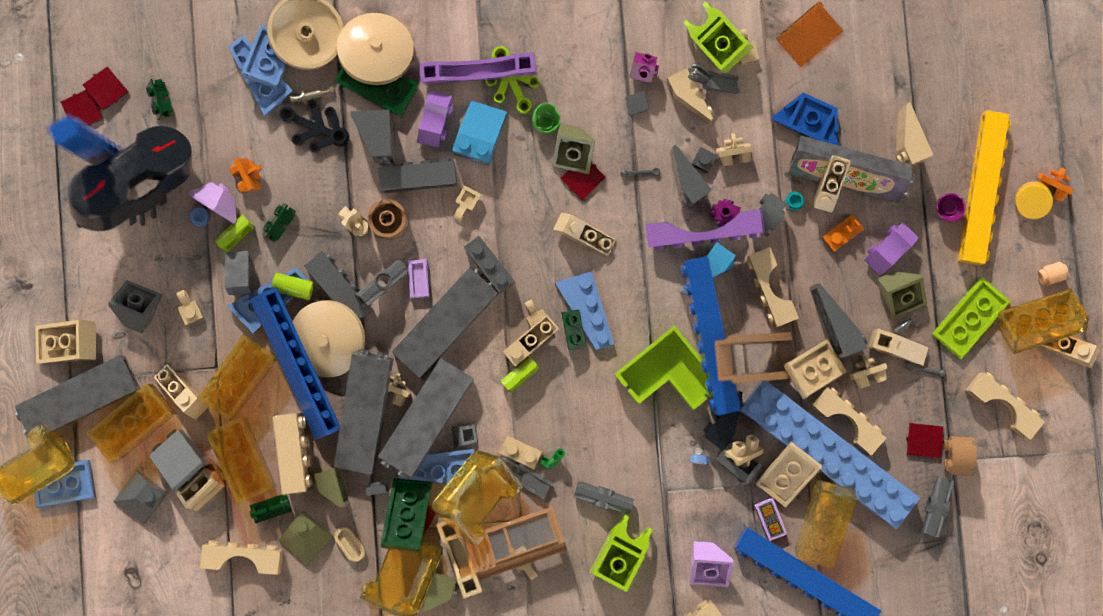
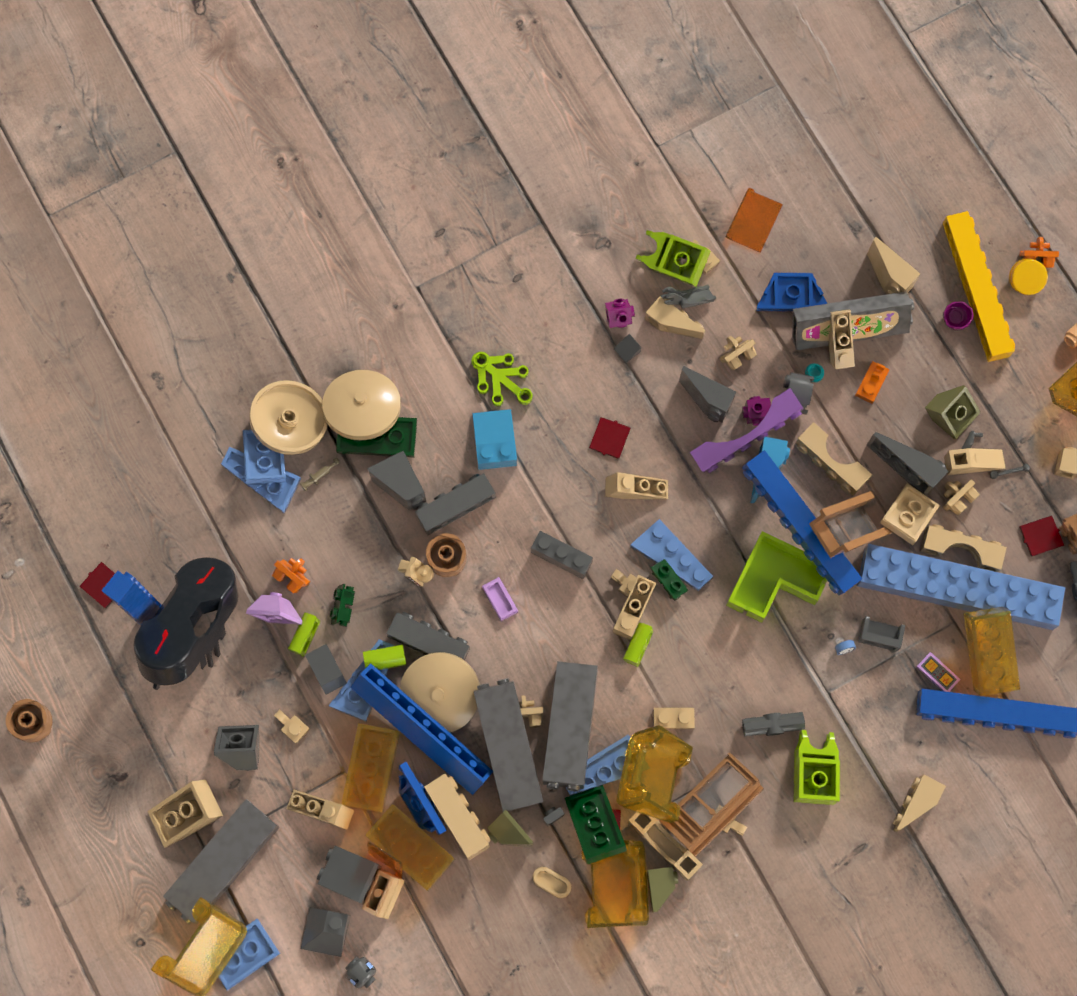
camera: 25 degrees left, 10 degrees down
(105, 88) = (117, 554): dark red piece -> none
(131, 423) = (286, 860): clear yellow brick -> none
(153, 545) = (360, 972): none -> dark grey head
(156, 92) = (168, 534): dark green hinge -> none
(199, 217) = (263, 634): medium blue tile -> none
(266, 434) = (417, 802): none -> blue wing
(266, 560) = (427, 953): tan arch -> none
(270, 508) = (458, 882): dark green hinge -> none
(305, 538) = (506, 896): olive slope -> none
(318, 127) = (339, 501): black plant -> none
(374, 290) = (464, 624): dark grey piece -> none
(434, 119) = (447, 445): medium lavender brick -> none
(445, 322) = (545, 627): flat silver brick -> none
(463, 71) = (449, 391): medium lavender arch -> none
(464, 435) = (612, 727): dark grey slope -> none
(467, 200) = (512, 505): tan plate -> none
(530, 479) = (700, 740): dark grey arm -> none
(546, 118) = (551, 398): bright green hair -> none
(555, 459) = (709, 711): green arm -> none
(573, 149) = (590, 415): olive slope -> none
(655, 171) = (674, 402): dark grey hinge -> none
(704, 159) = (714, 371): dark grey plate -> none
(710, 565) = (904, 742): lavender slope -> none
(723, 428) = (852, 608): black slope -> none
(744, 452) = (883, 619): tan hips -> none
(788, 474) = (934, 622): tan tile -> none
(891, 248) = (923, 375): medium lavender brick -> none
(971, 318) = (1026, 406): lime tile -> none

